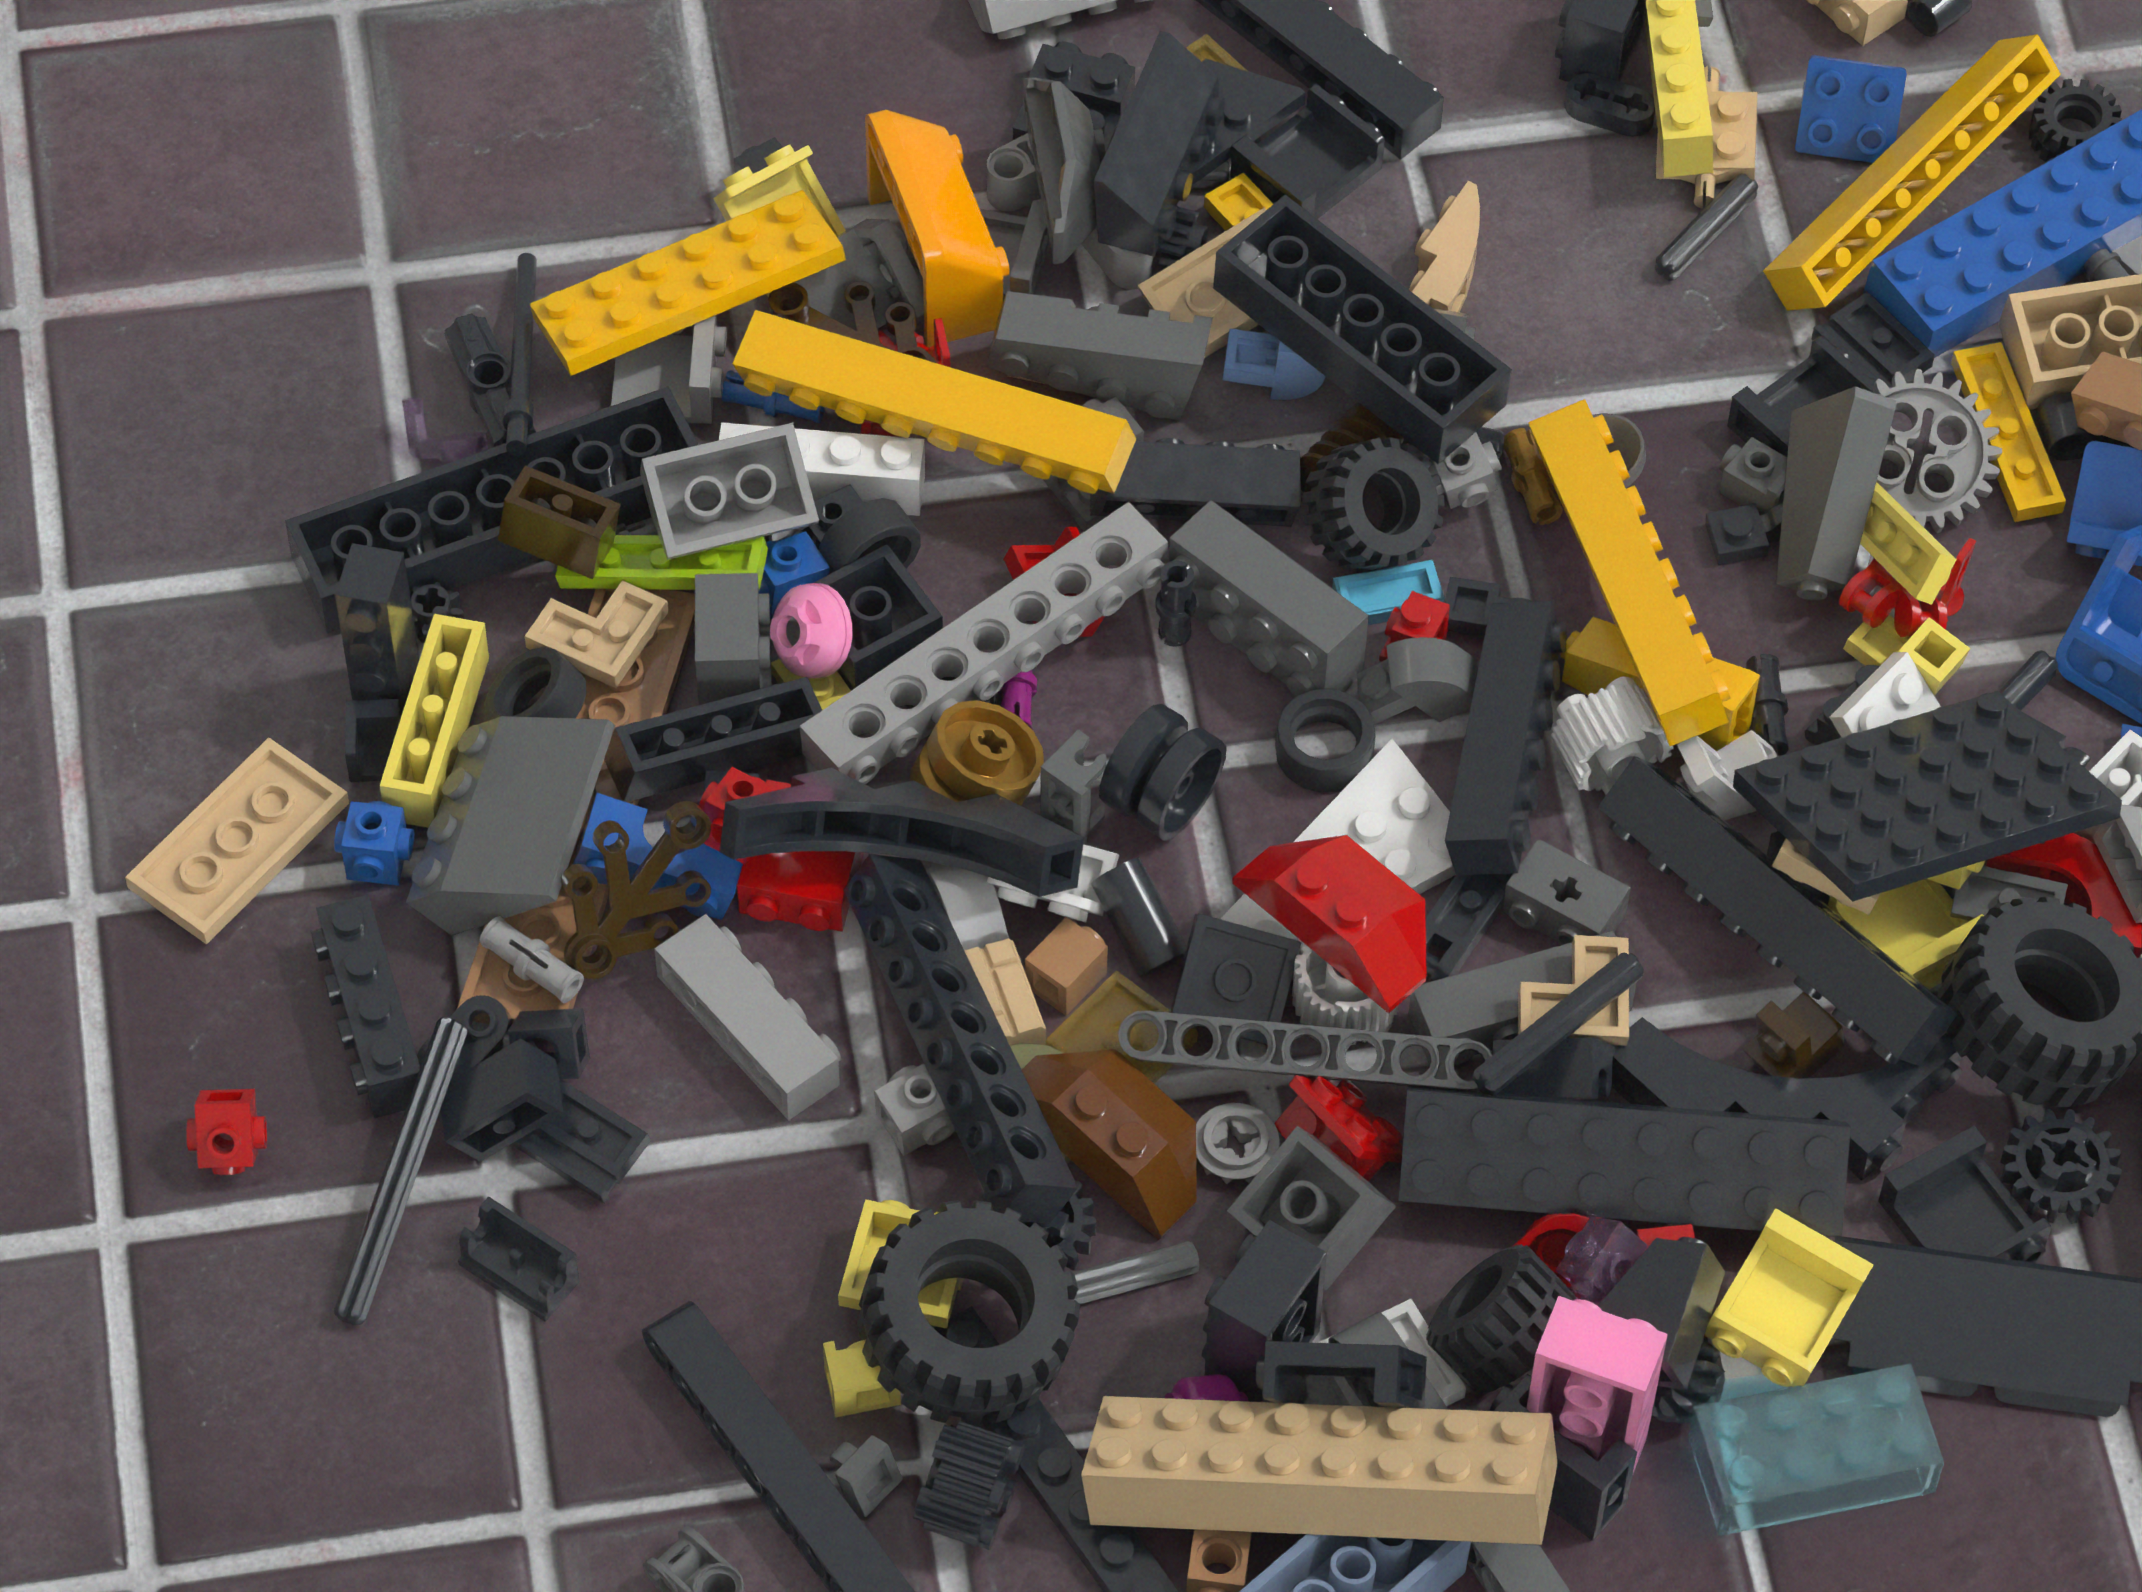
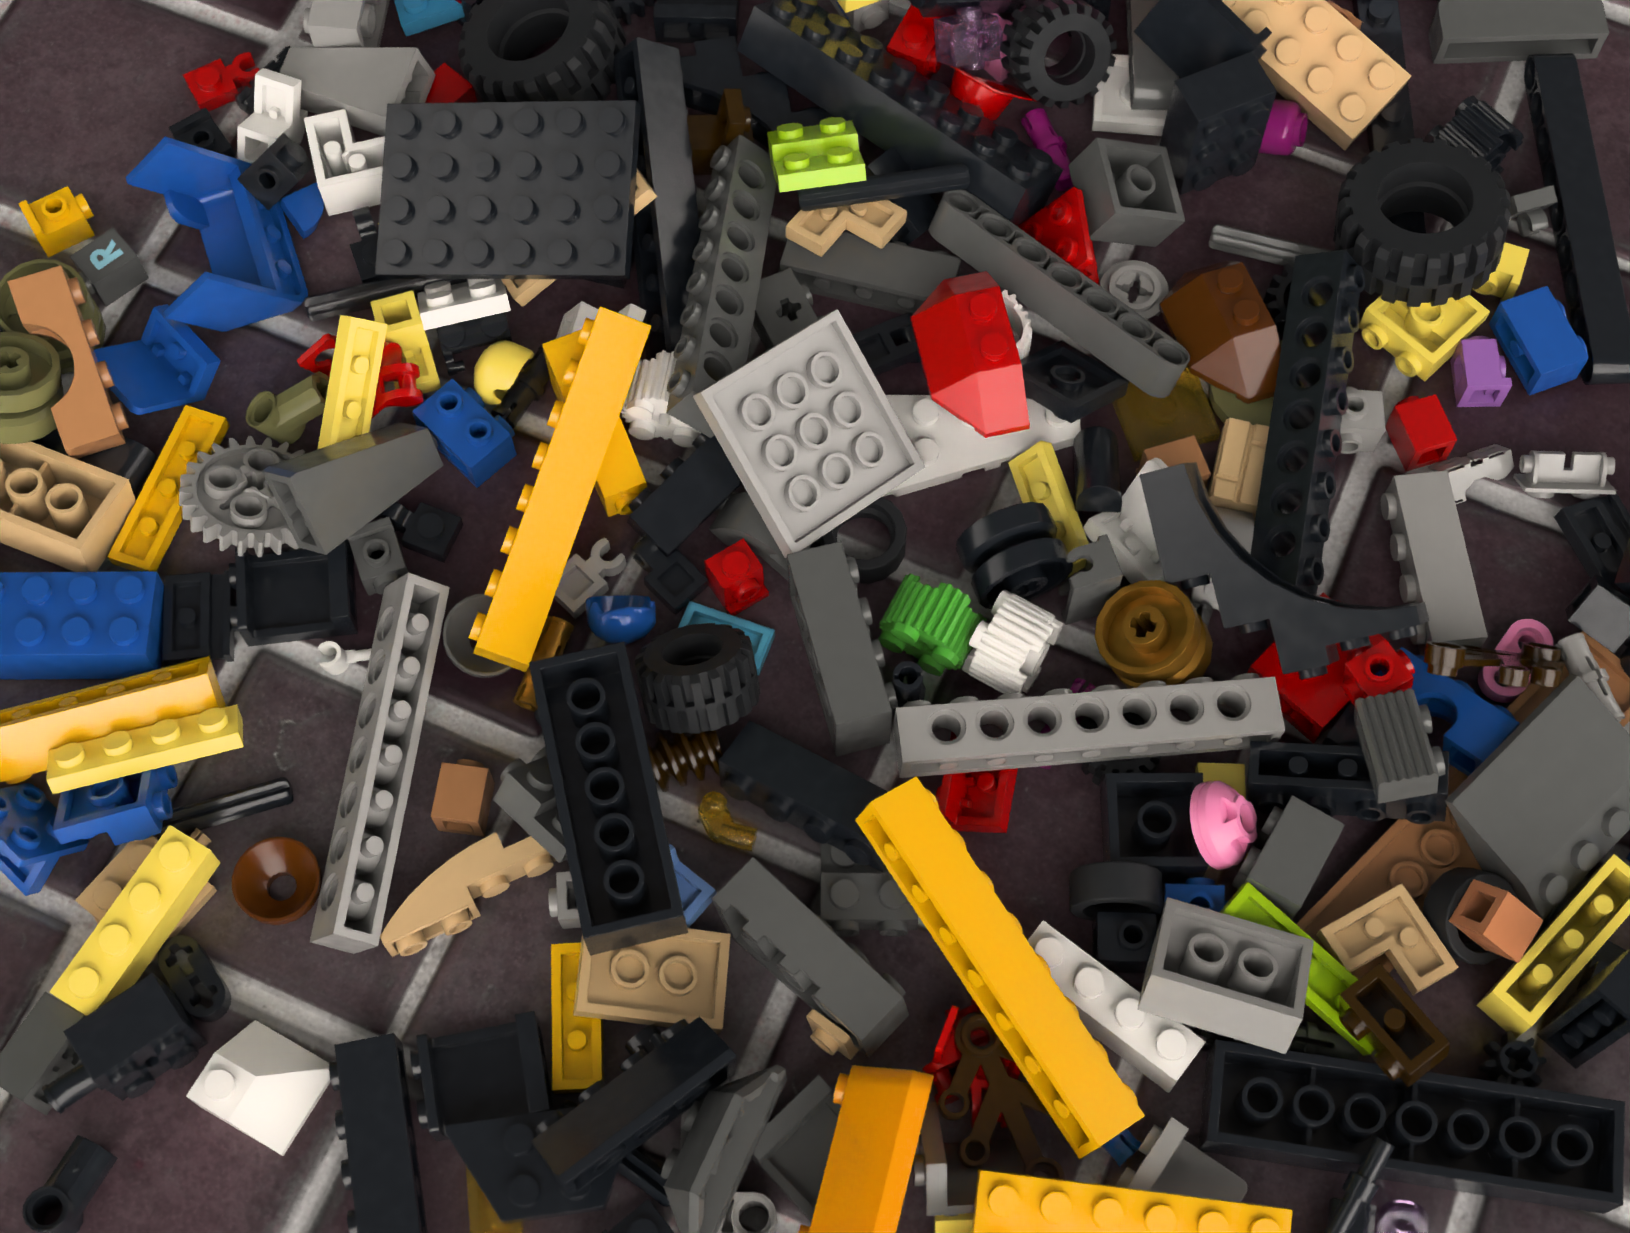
camera: 145 degrees left, 10 degrees up
(512, 668) = (1496, 920): none -> nougat brick
(622, 982) = (1521, 631): none -> bright pink plate
(659, 1179) = (1547, 474): none -> light grey hinge
(685, 734) = (1397, 746): none -> dark grey brick
(764, 1164) = (1493, 468): none -> light grey piece
(768, 1307) = (1539, 340): none -> blue brick
(811, 1245) = (1479, 373): none -> medium lavender brick
(838, 1146) = (1420, 432): none -> red brick
(1106, 690) = (1013, 645): none -> white brick
(1166, 865) = (1042, 481): none -> light yellow plate
(1198, 671) = (930, 624): none -> bright green brick
(1259, 435) = (720, 825): none -> clear yellow arm
(1408, 1235) = (1047, 140): none -> magenta pin
(1433, 728) = (809, 432): none -> light grey plate
(1484, 60) = (262, 1085): none -> white slope
(1495, 543) = (620, 617): none -> blue hair
(1507, 329) = (463, 798): none -> medium nougat brick
(1543, 697) = (724, 276): none -> dark grey brick
(1557, 564) = (585, 578): none -> light grey plate
(1600, 314) = (380, 766): none -> light grey brick
(1608, 176) = (263, 865): none -> reddish brown piece
(1654, 1020) = (815, 155): none -> lime plate
(1719, 393) = (343, 657): none -> white hand
(1784, 621) = (467, 432): none -> blue brick
(1794, 165) = (122, 807): none -> blue plate
(1798, 686) = (498, 370): none -> light yellow hair
(1801, 202) = (144, 748): none -> light yellow plate
(1972, 521) = (286, 414): none -> olive piece

